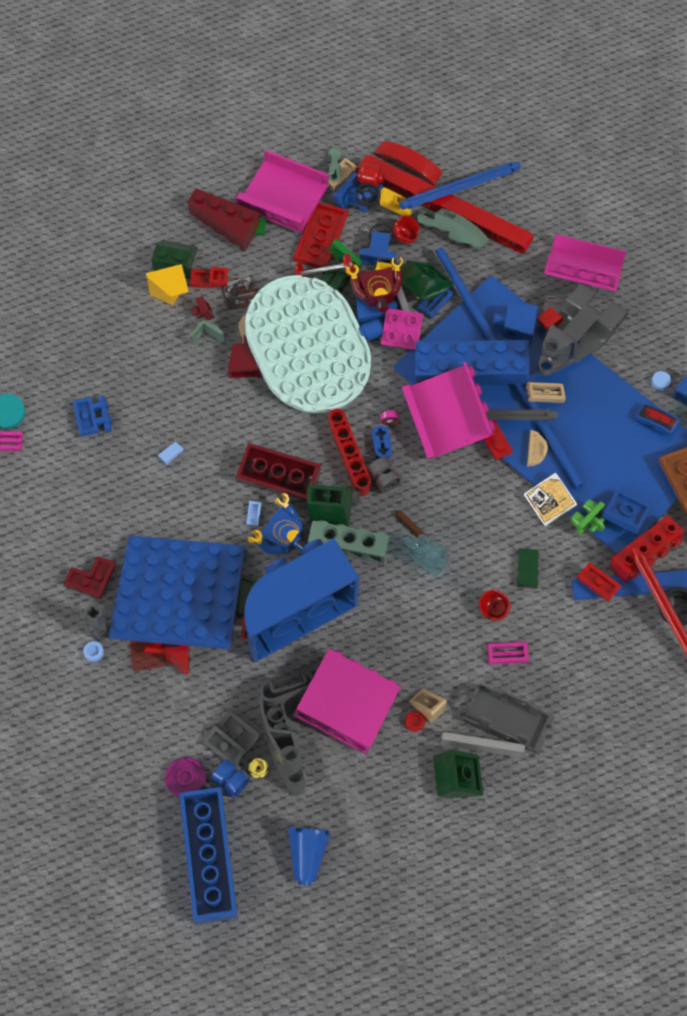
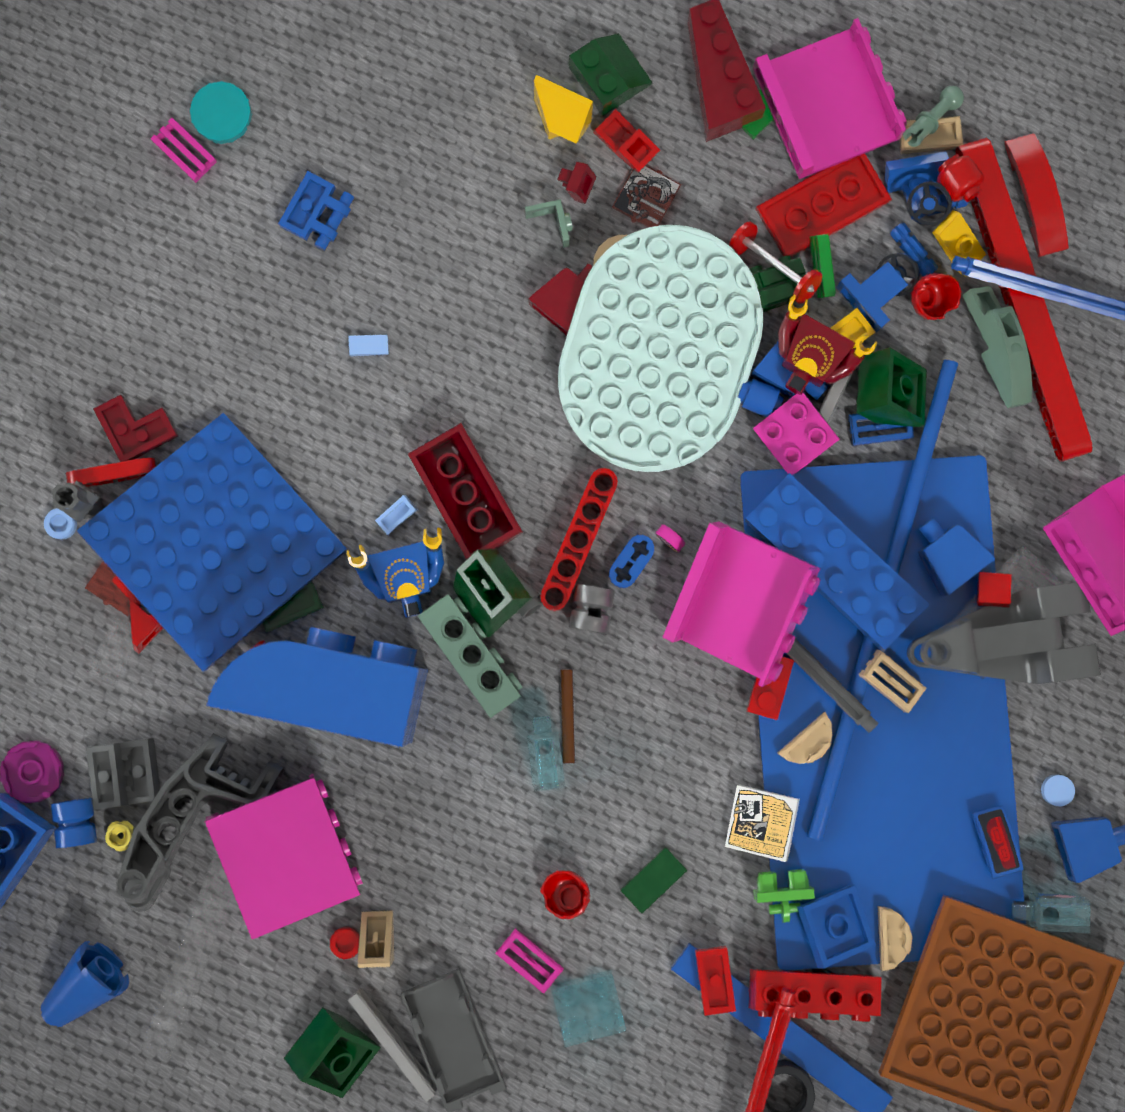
camera: 40 degrees right, 20 degrees up
(103, 600) = (107, 473): none -> red beam
(366, 220) = (913, 248): none -> blue axle
(555, 648) = (588, 1008): none -> clear light blue hinge
(656, 498) = (894, 938): none -> tan tile

